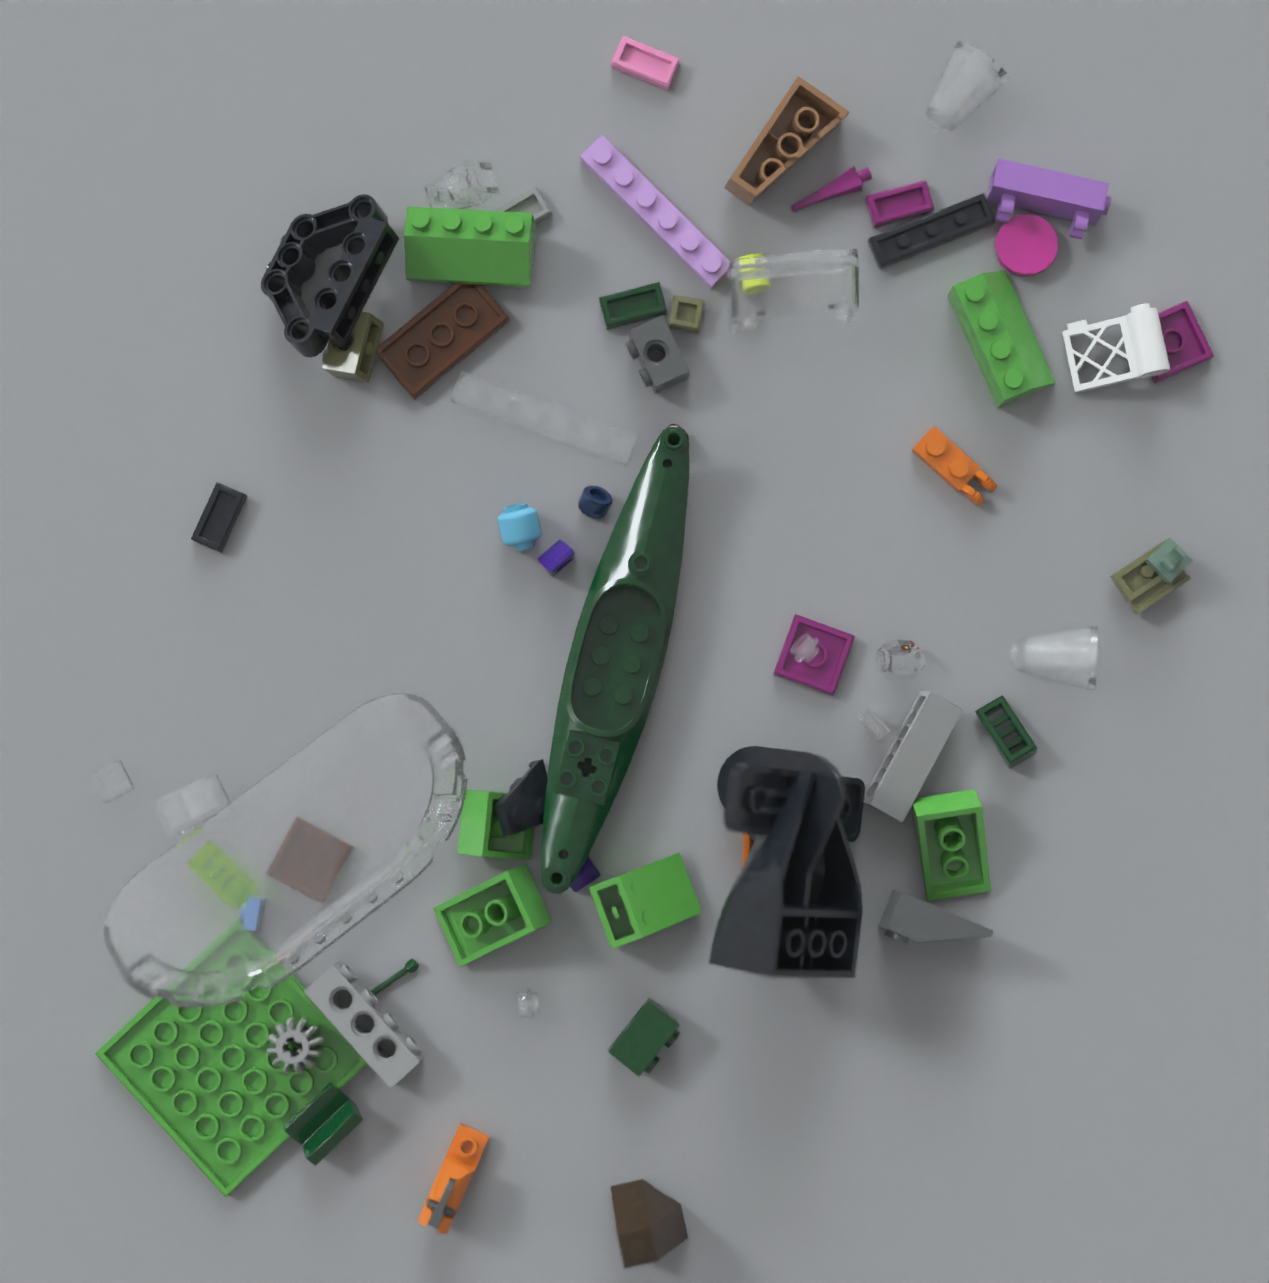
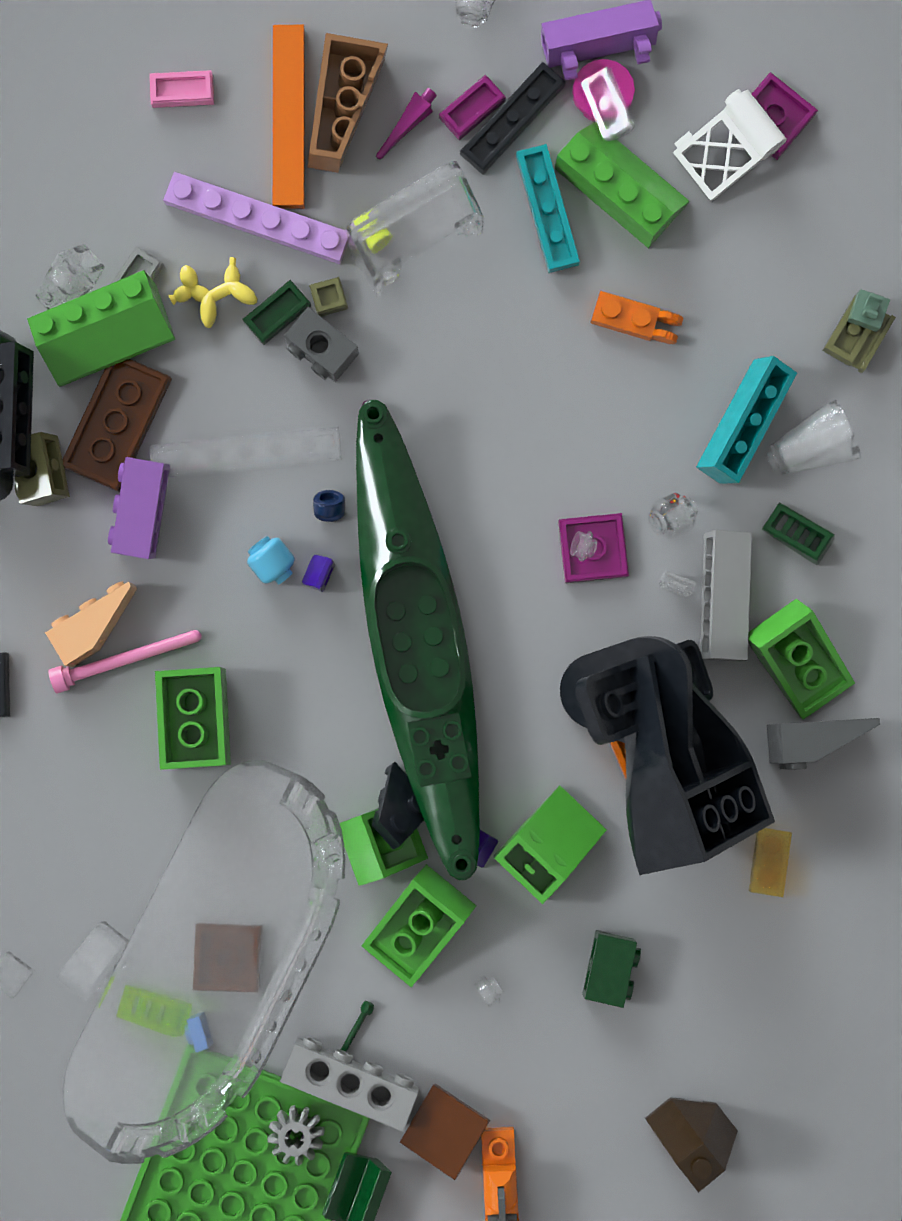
camera: 25 degrees left, 0 degrees up
(287, 542) = (63, 678): none -> bright pink piece
(327, 509) = (86, 631): none -> light nougat slope
(382, 633) = (192, 718): none -> bright green brick
(425, 422) = (139, 508): none -> medium lavender brick
(427, 1108) = (444, 1131): none -> reddish brown tile
(577, 264) = (208, 307): none -> light yellow piece
(729, 133) = (288, 116): none -> orange tile
(834, 1013) = (770, 862): none -> clear yellow plate
(922, 328) = (547, 208): none -> teal plate
(1008, 606) = (746, 420): none -> teal brick
(1022, 261) = (608, 105): none -> clear brick

